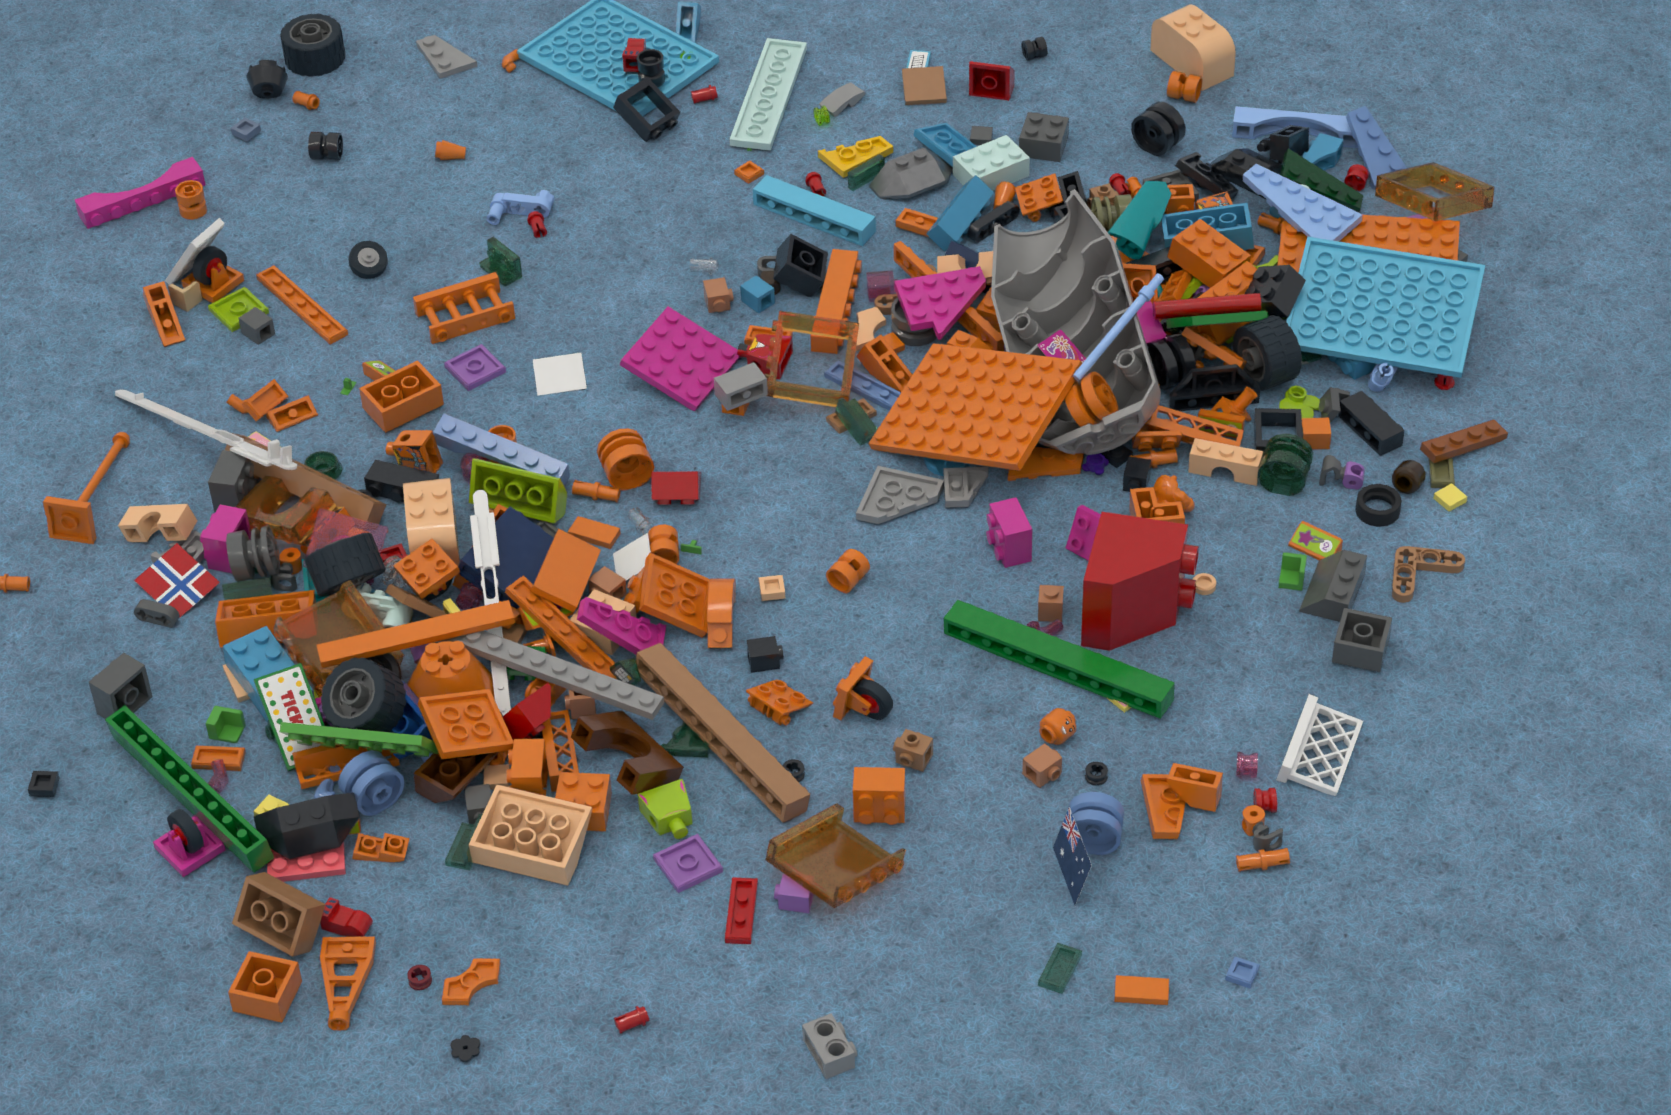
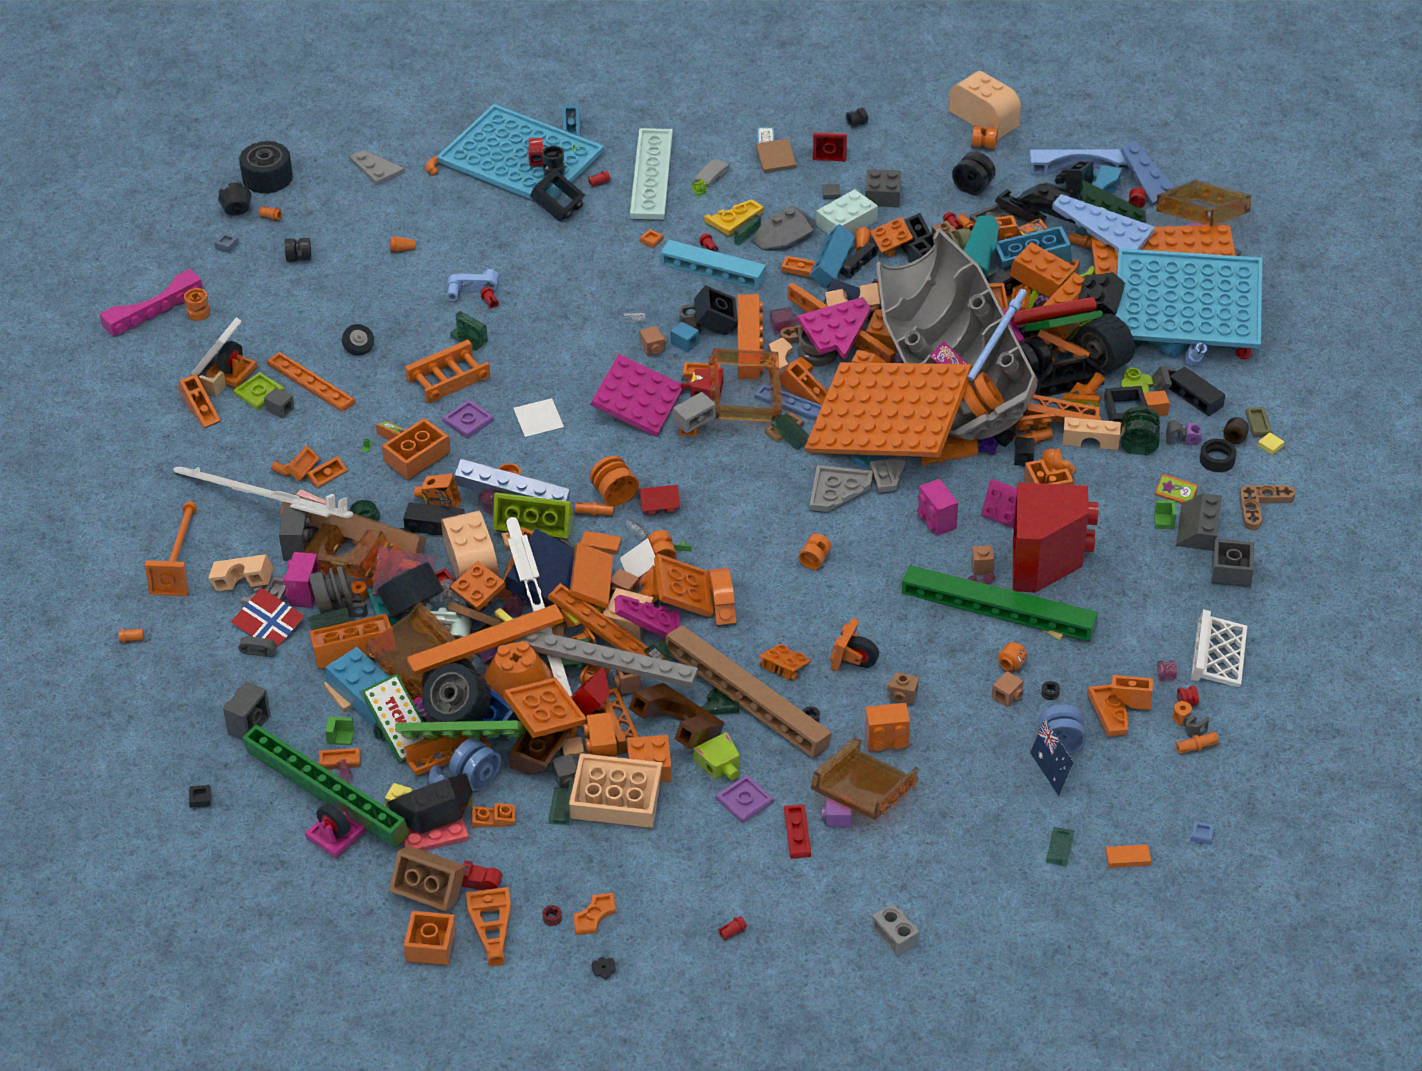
camera: 10 degrees left, 0 degrees up
(764, 654) = (764, 625): black brick -> none
(772, 587) = (756, 571): light nougat plate -> none
(943, 141) = (804, 199): dark azure tile -> none
(1205, 584) = (1100, 531): light nougat tile -> none
(1463, 441) = (1271, 398): dark orange plate -> none

